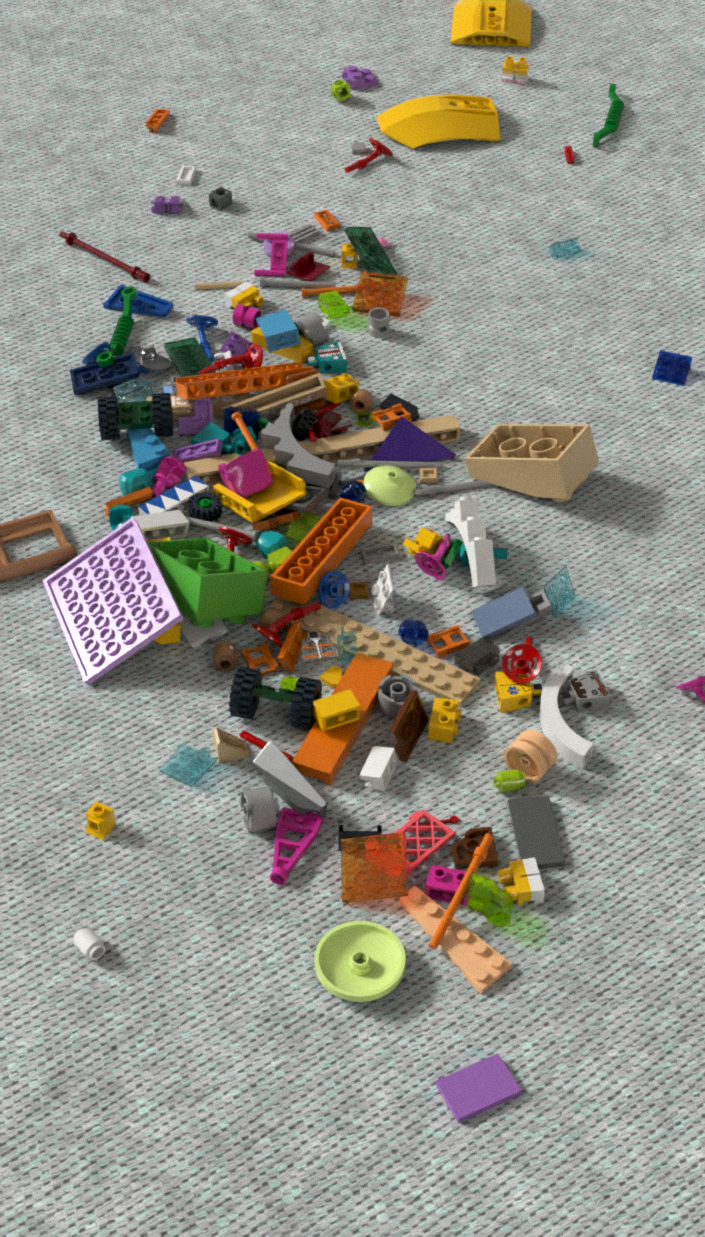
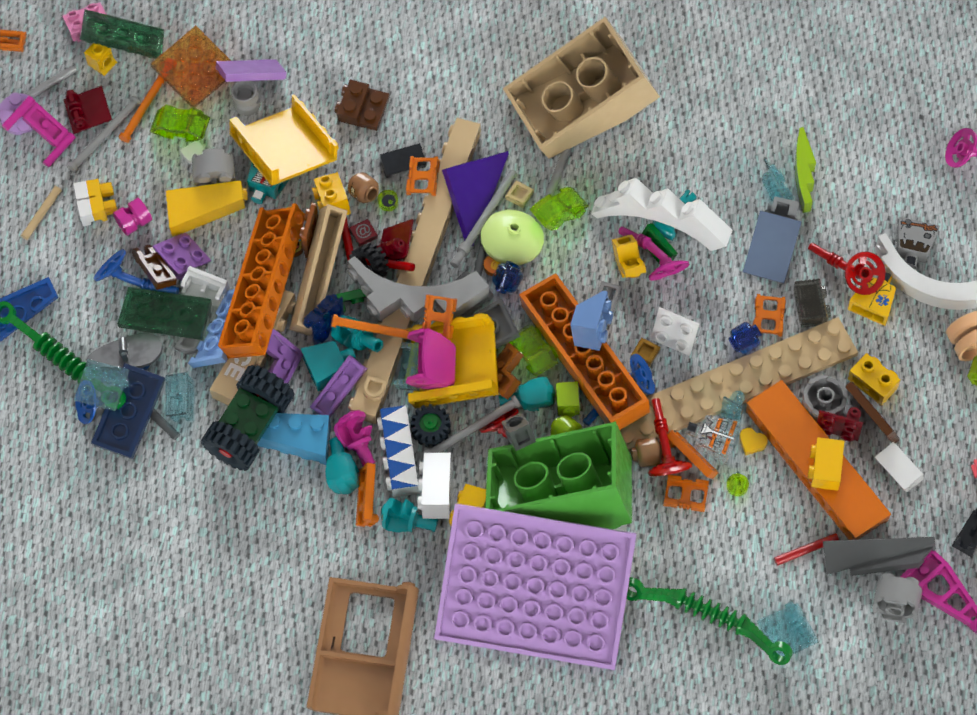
camera: 55 degrees left, 20 degrees up
(107, 345) = (102, 385): none -> clear light blue hinge
(169, 710) = (743, 625): none -> green piece
(207, 464) = (375, 388): none -> tan tile
(215, 340) = (154, 267): none -> reddish brown hinge
(225, 537) = (518, 431): none -> dark grey brick
(225, 655) = (667, 521): medium nougat head -> none
(229, 746) = (786, 583): tan slope -> none
(248, 359) = (214, 262): red dish -> none
(248, 689) = (785, 487): black plate -> none
(278, 330) = (191, 199): dark azure panel -> none
(284, 463) = (446, 318): none -> orange piece
(305, 234) = (12, 64): light grey tile -> none
(339, 525) = (591, 321): none -> medium blue slope
(356, 350) = (285, 143): none -> panel
(385, 712) = (846, 427): none -> dark red hinge
(398, 312) = (251, 70): none -> medium lavender tile
(425, 375) = (361, 105): none -> reddish brown plate
(430, 491) = (560, 208): none -> clear neon green brick
(591, 602) = (804, 166): none -> lime slope

